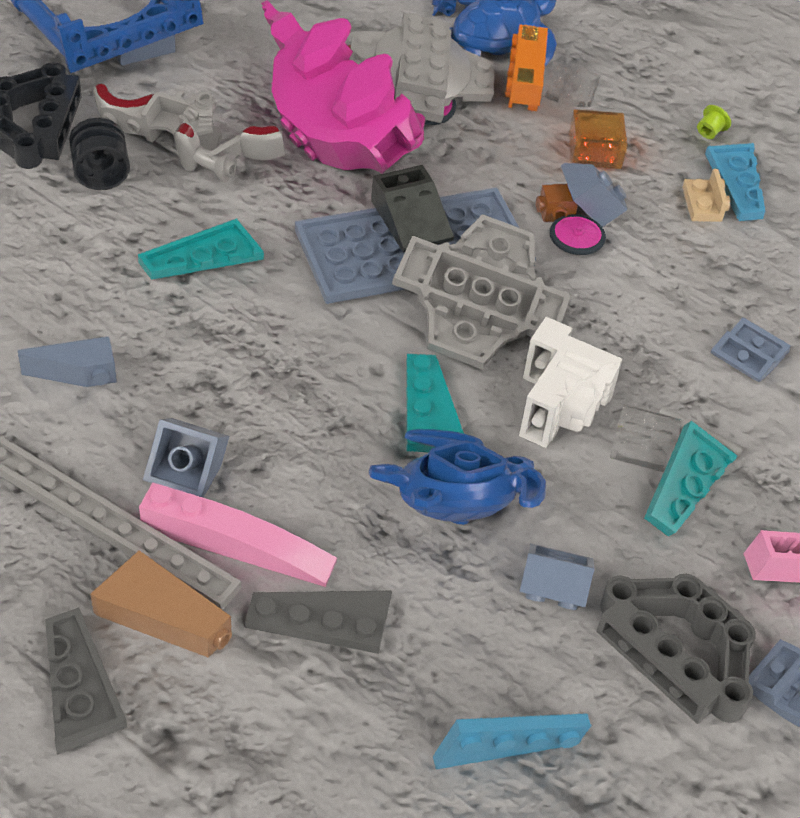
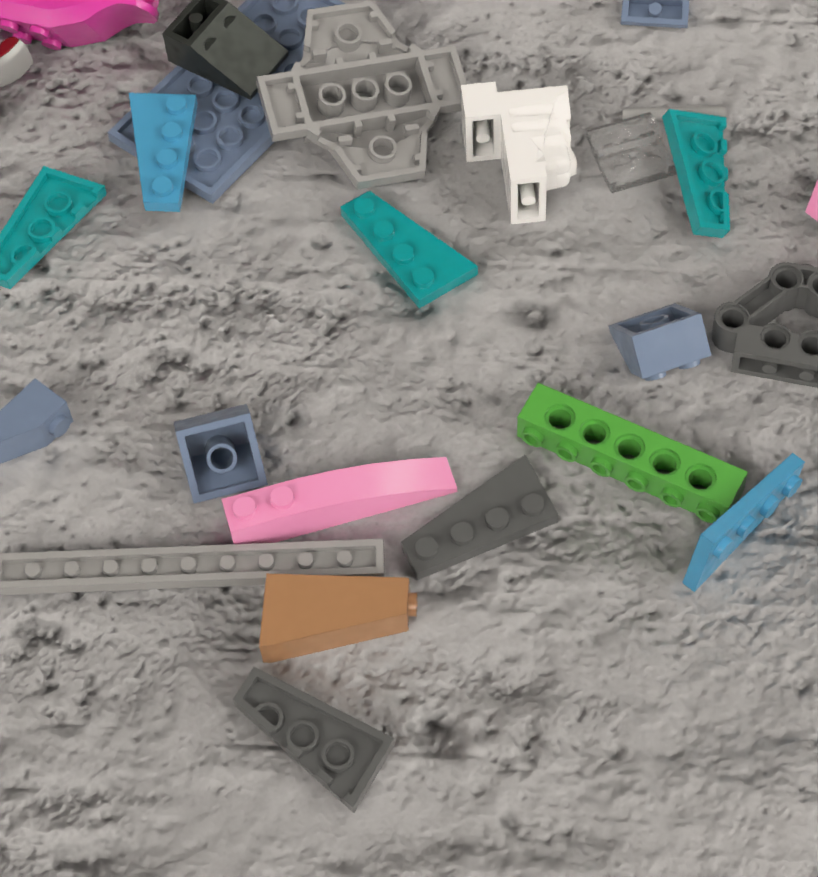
camera: 25 degrees left, 10 degrees up
(320, 248) = (163, 143): none -> dark azure wing
(461, 478) = (511, 299): blue animal -> none
(466, 621) = (621, 437): none -> bright green brick

